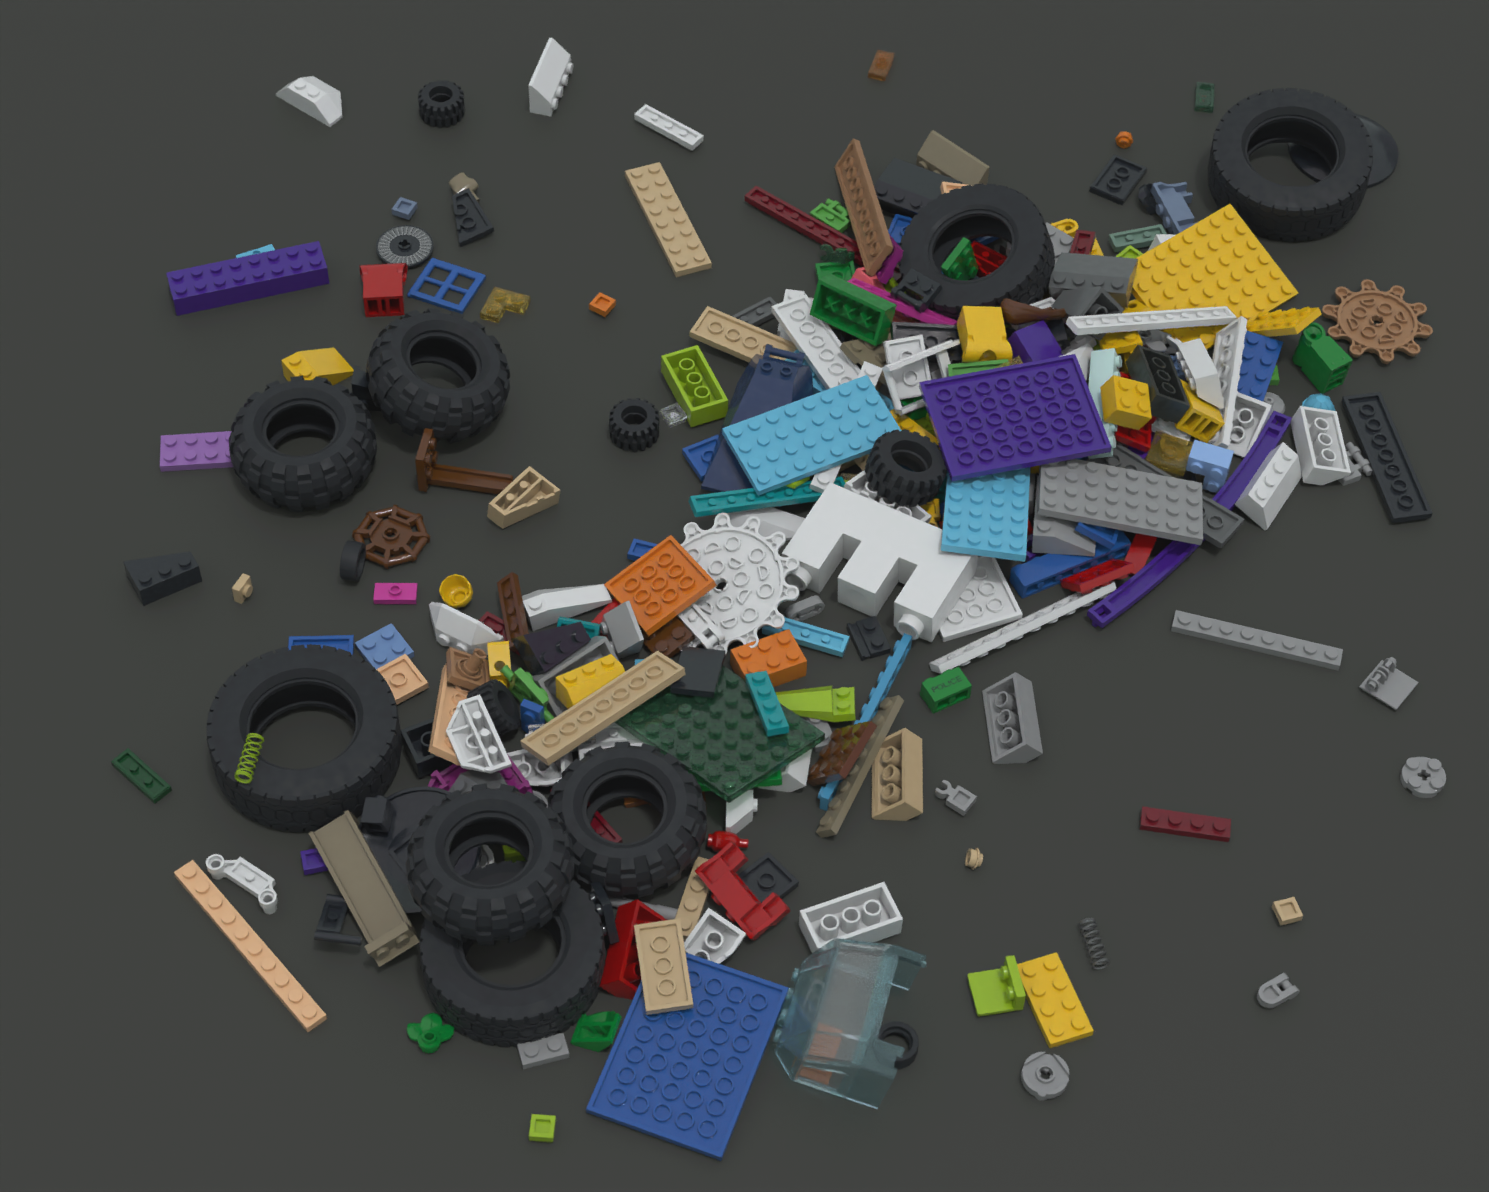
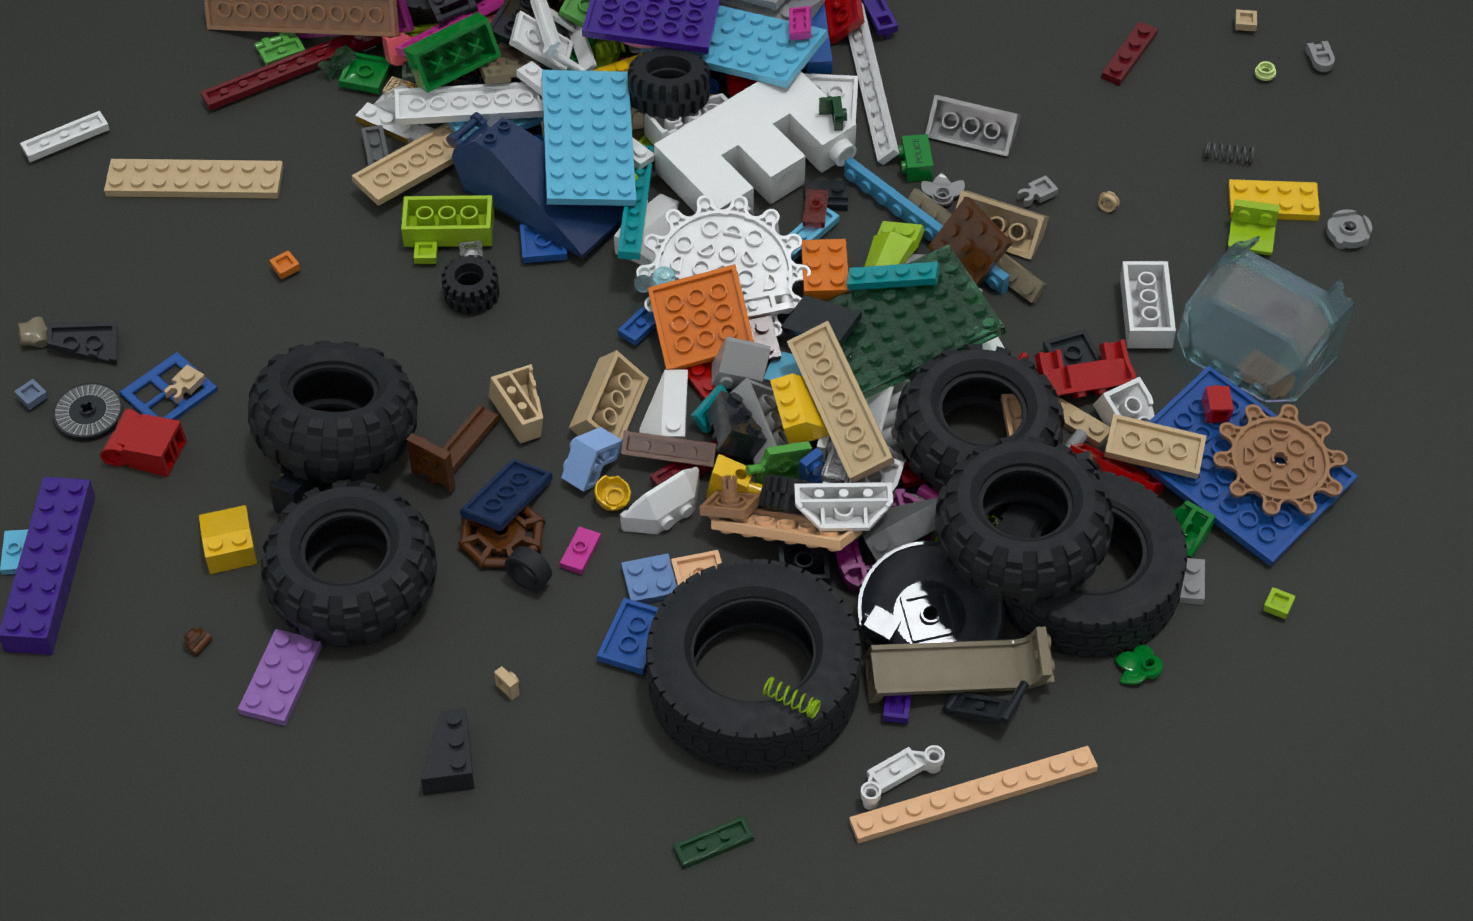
camera: 65 degrees left, 0 degrees up
(215, 389) = (196, 640): none -> reddish brown plate
(424, 523) = (506, 494): none -> dark blue tile
(454, 291) = (185, 381): none -> tan plate
(484, 560) = (588, 456): none -> light blue brick
(503, 300) = (225, 348): clear yellow plate -> none
(555, 559) = (610, 396): none -> tan slope
(659, 386) = (425, 252): none -> lime plate
(677, 532) = (643, 281): none -> clear light blue plate
(694, 1052) = (1285, 438): none -> medium nougat plate
(737, 1003) = (1217, 404): none -> red brick
(838, 630) = (815, 208): none -> clear red plate
(924, 723) = (942, 189): none -> light grey plate
(931, 595) = (833, 106): none -> dark green bracket
(1015, 530) = (800, 23): none -> dark pink plate
(1226, 942) = (1265, 71): none -> yellowish green plate

